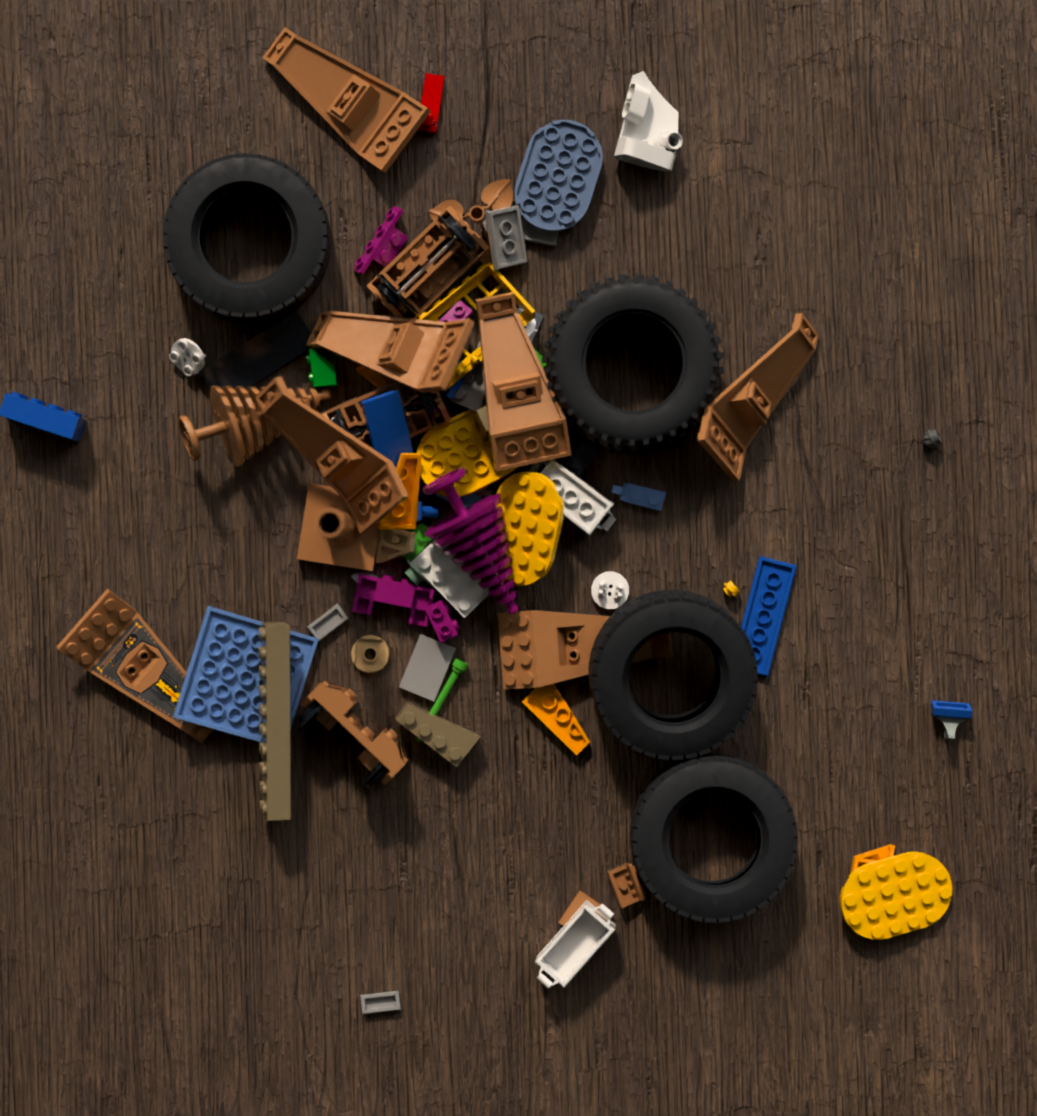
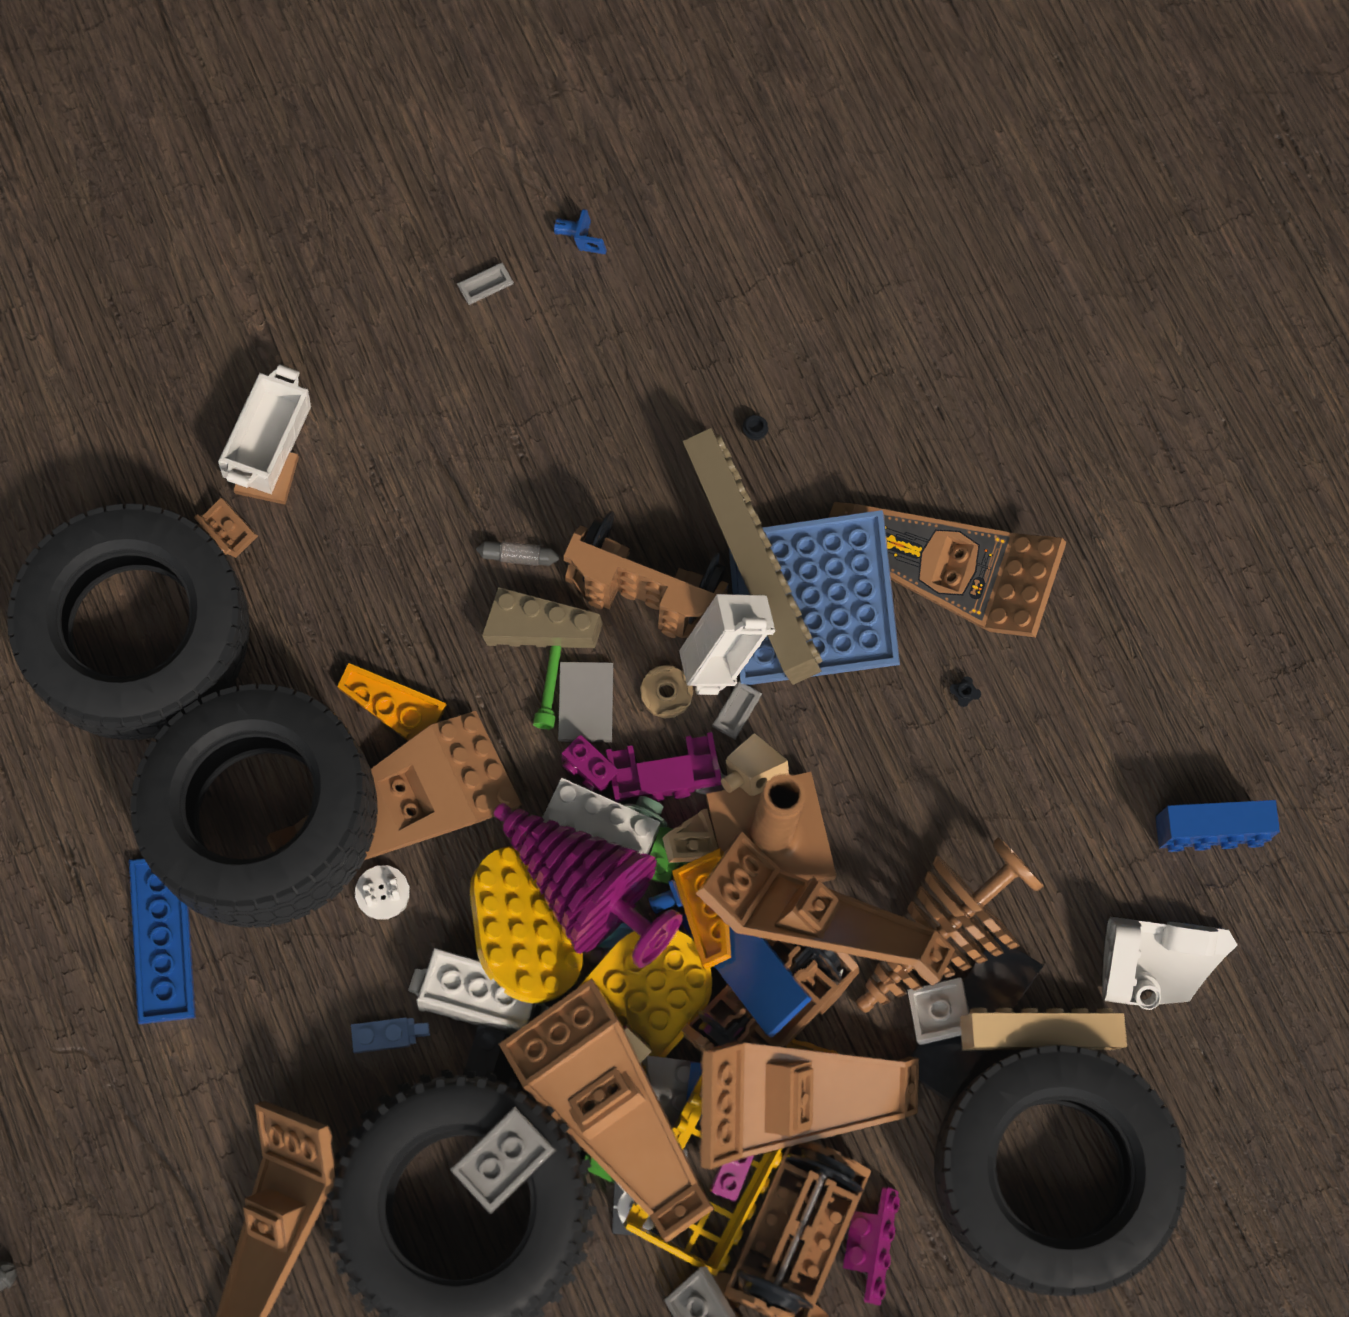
camera: 155 degrees right, 15 degrees down
(121, 345) = (1159, 957): none -> white panel
(174, 574) = (964, 699): none -> black plate
(187, 356) = (1066, 980): white plate -> none
(218, 328) = (1033, 1029): none -> tan brick
(233, 819) = (755, 427): none -> black plate
(278, 364) = (938, 1010): none -> white plate
(298, 1017) = (579, 230): none -> blue bracket
(319, 664) = (725, 641): none -> white container
(323, 371) = (880, 1033): green slope -> none
(333, 575) = (753, 766): none -> tan torso
(433, 790) = (517, 553): none -> piece
(596, 376) = (502, 1159): none -> light grey tile
(731, 589) = (218, 956): yellow plate -> none

